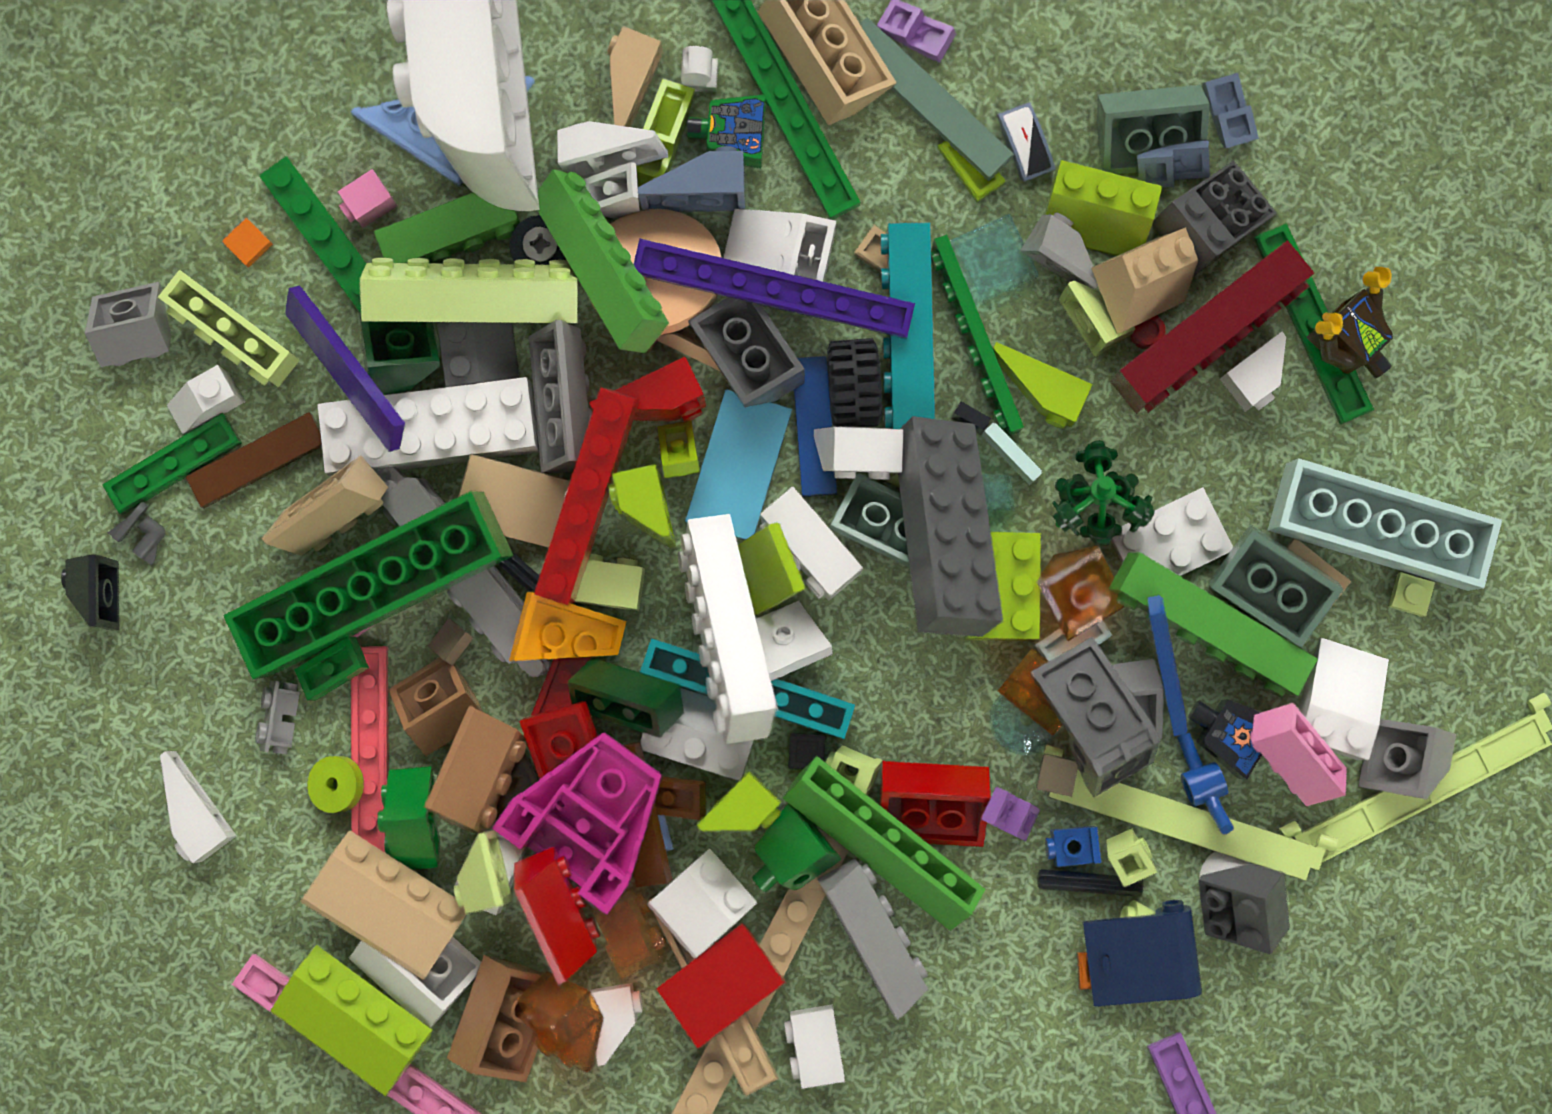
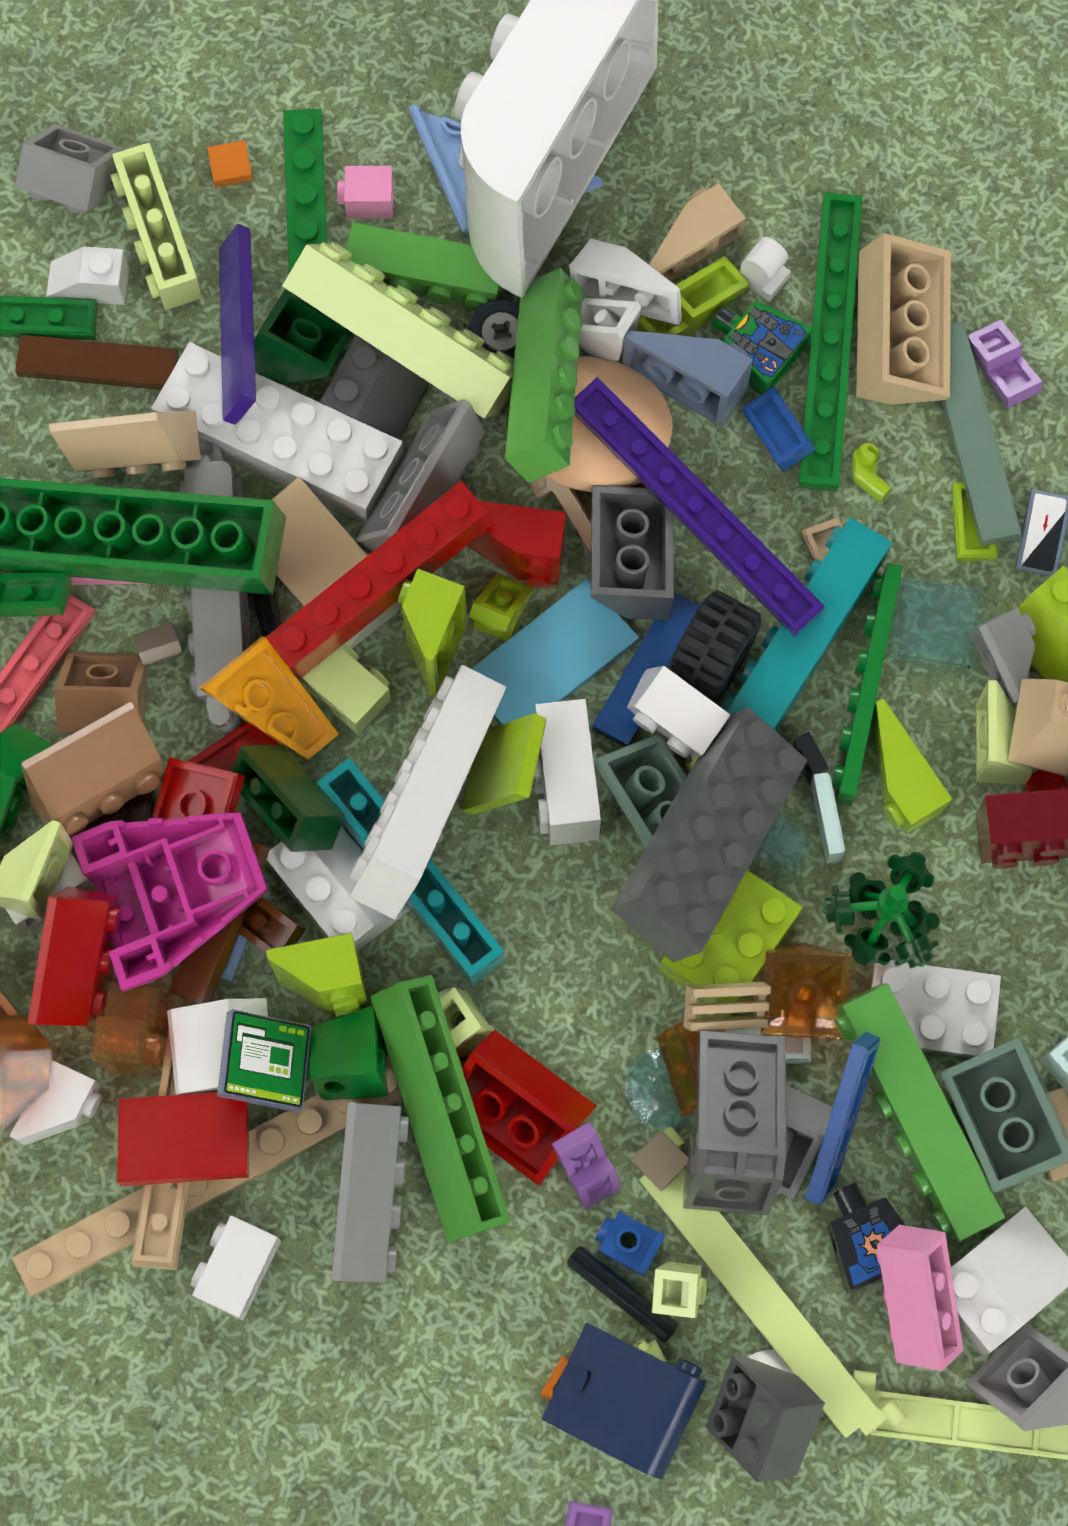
camera: 30 degrees right, 10 degrees down
(742, 896) = (264, 1060): none -> tile
(782, 241) = (740, 475): white slope -> none
(788, 186) = (778, 429): none -> blue tile
(790, 640) = (479, 849): white plate -> none
(804, 749) = (426, 964): black tile -> none
(870, 178) = (865, 472): none -> lime arm
(1040, 645) = (758, 1006): none -> tan tile
(1204, 784) = (805, 1269): blue piece -> none

